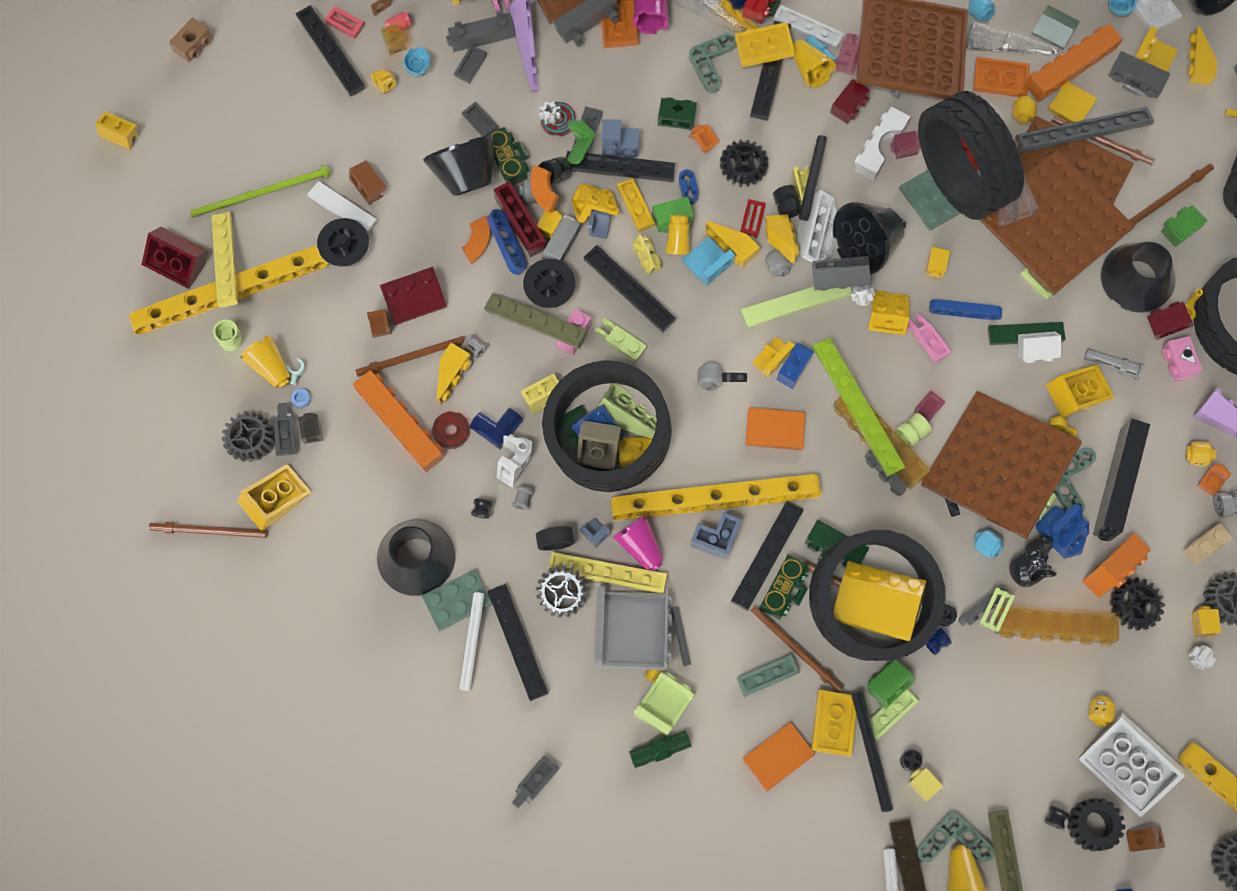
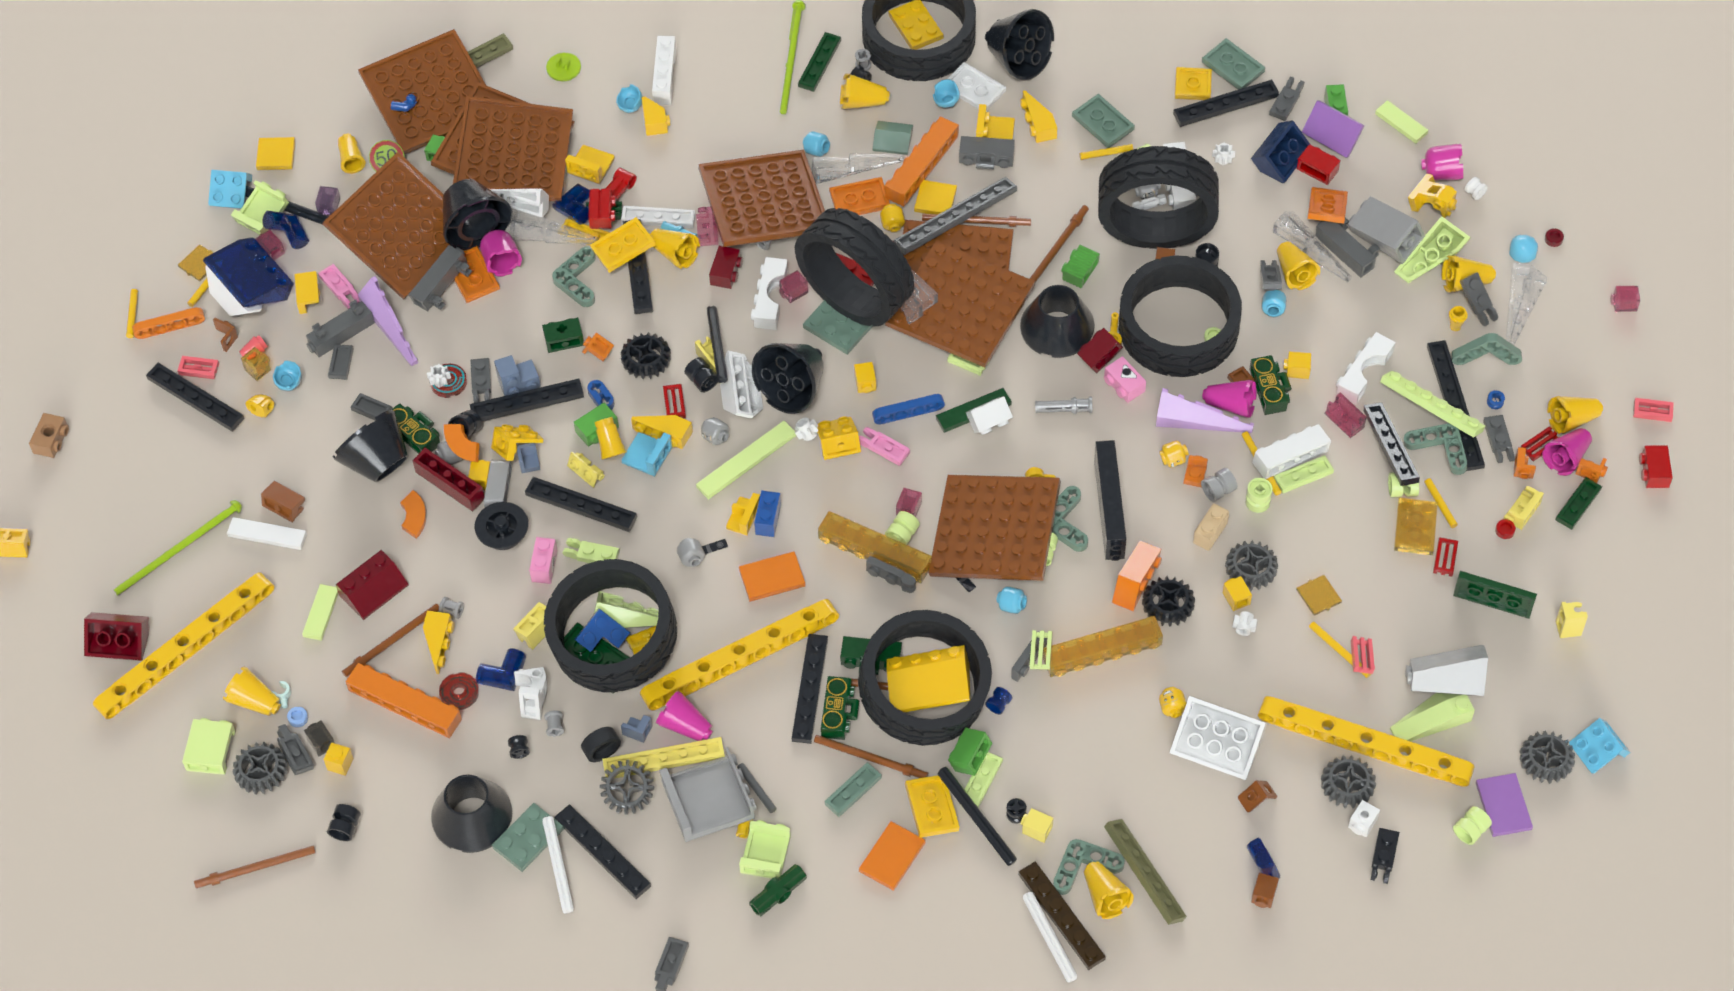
camera: 20 degrees left, 15 degrees down
(211, 396) = (208, 746): none -> yellowish green panel
(224, 259) = (169, 617): light yellow plate -> none
(228, 335) = (202, 684): yellowish green wheel -> none
(273, 496) = (307, 812): yellow slope -> none
(299, 521) = (343, 822): none -> black wheel
(319, 456) = (338, 759): none -> yellow brick
(343, 242) = (282, 561): black wheel -> none
(359, 304) = (320, 612): none -> yellowish green tile
(379, 323) = (348, 620): dark orange panel -> none
(510, 241) = (457, 518): blue beam -> none
(536, 320) = (502, 561): olive plate -> none
(585, 135) = (482, 383): bright green bracket -> none
(598, 445) = (608, 642): dark tan brick -> none
(635, 205) = (556, 429): yellow tile -> none
(717, 541) = (755, 690): sand blue brick -> none
(781, 236) = (707, 405): yellow slope -> none
(841, 273) = (778, 416): dark grey brick -> none
(858, 407) = (841, 525): lime plate -> none
(948, 620) = (1001, 679): black wheel -> none
(1032, 565) = (1058, 603): black hair -> none
(1056, 817) = (1169, 807): black wheel -> none
(1065, 529) = (1078, 562): blue piece -> none
(1079, 390) = (1042, 440): yellow slope -> none
(1112, 821) = (1208, 784): black tyre -> none

